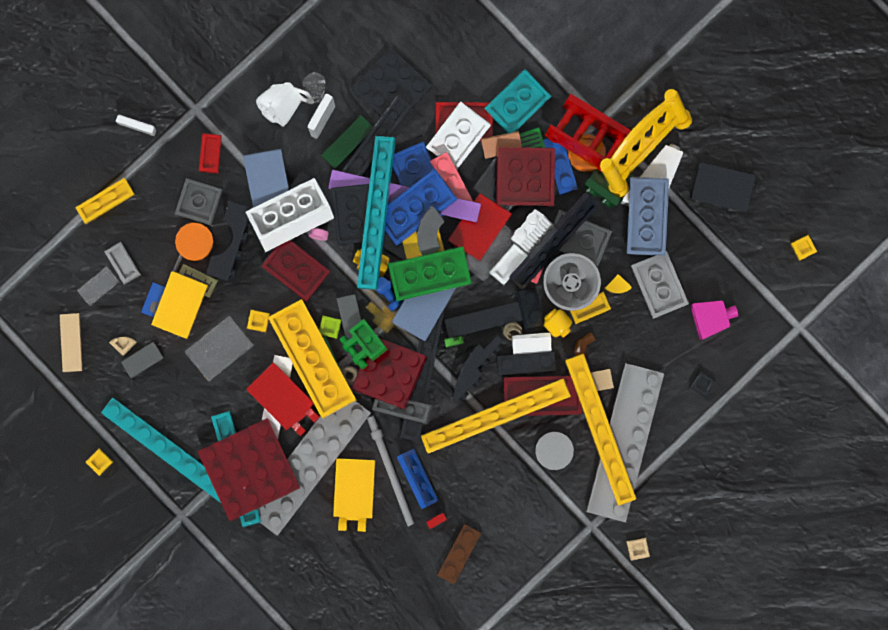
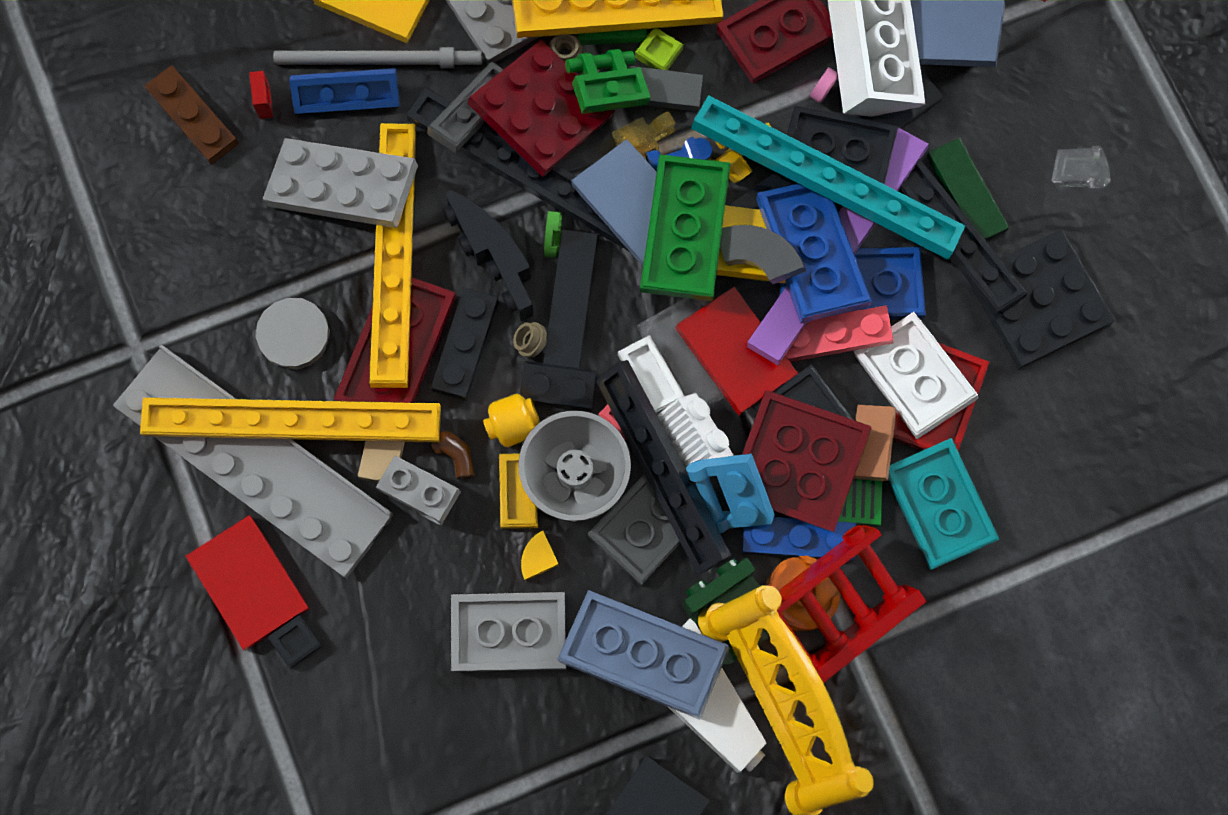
camera: 110 degrees right, 10 degrees down
(281, 102) = (1075, 101): white piece -> none
(321, 116) = (1032, 146): white tile -> none
(469, 458) = (340, 182): none -> light grey plate
(531, 343) = (495, 363): white tile -> none
(551, 199) = (740, 486): none -> dark azure plate
(609, 354) = (418, 490): none -> light grey plate
(638, 549) = (58, 411): tan tile -> none
(684, 419) = (247, 582): none -> red tile
(712, 317) = (407, 705): dark pink torso -> none

